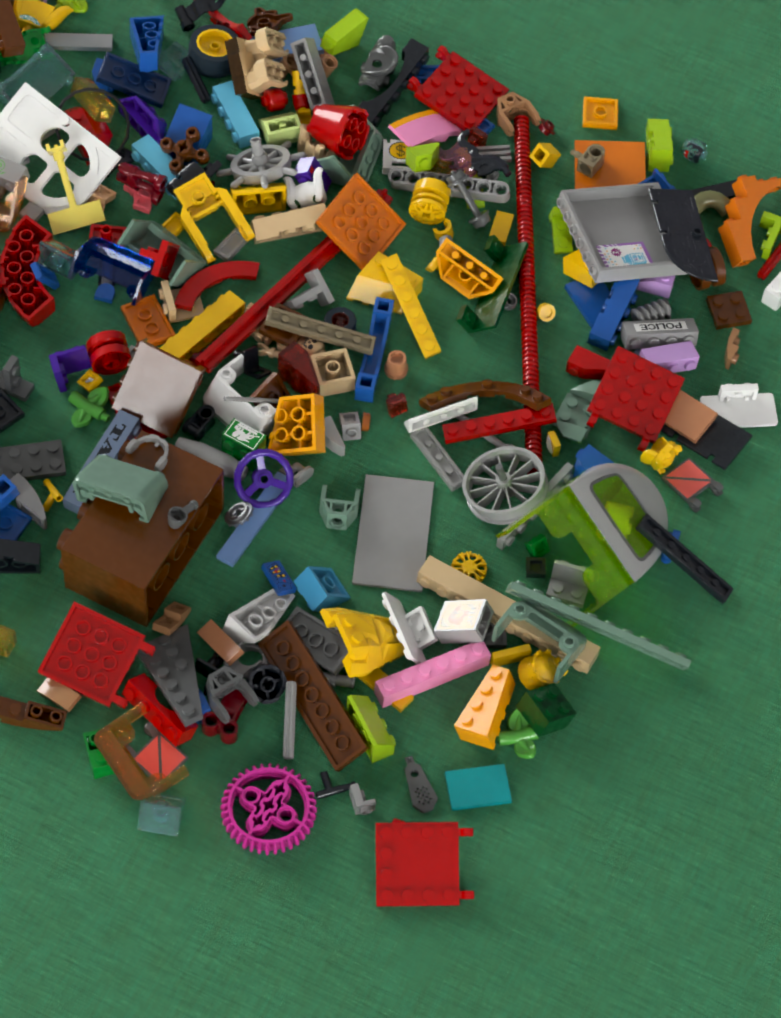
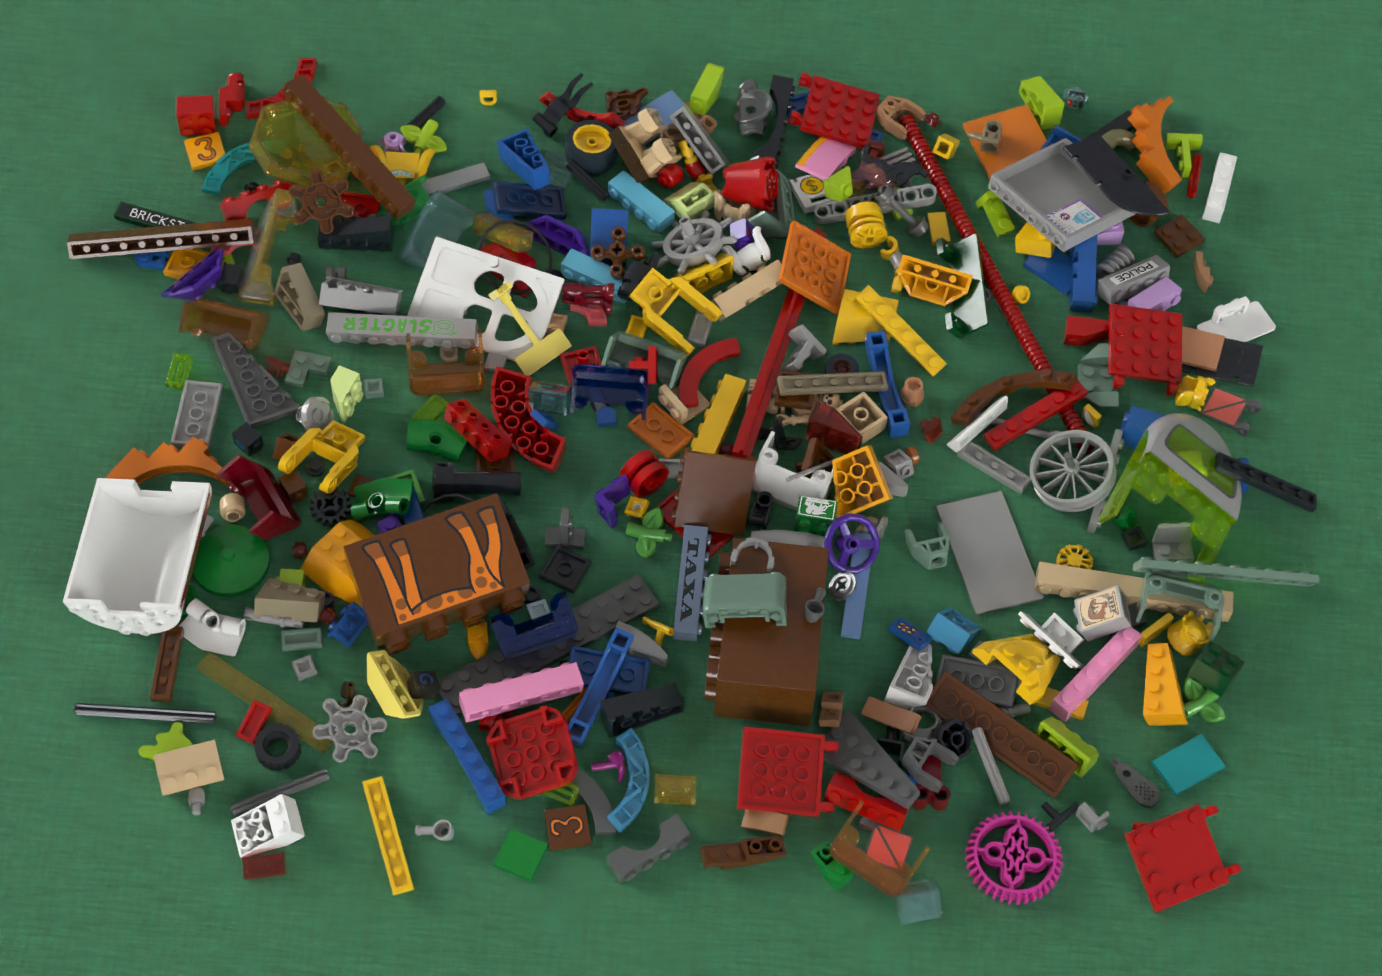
camera: 20 degrees left, 0 degrees up
(600, 113) = (971, 90): light orange tile -> none

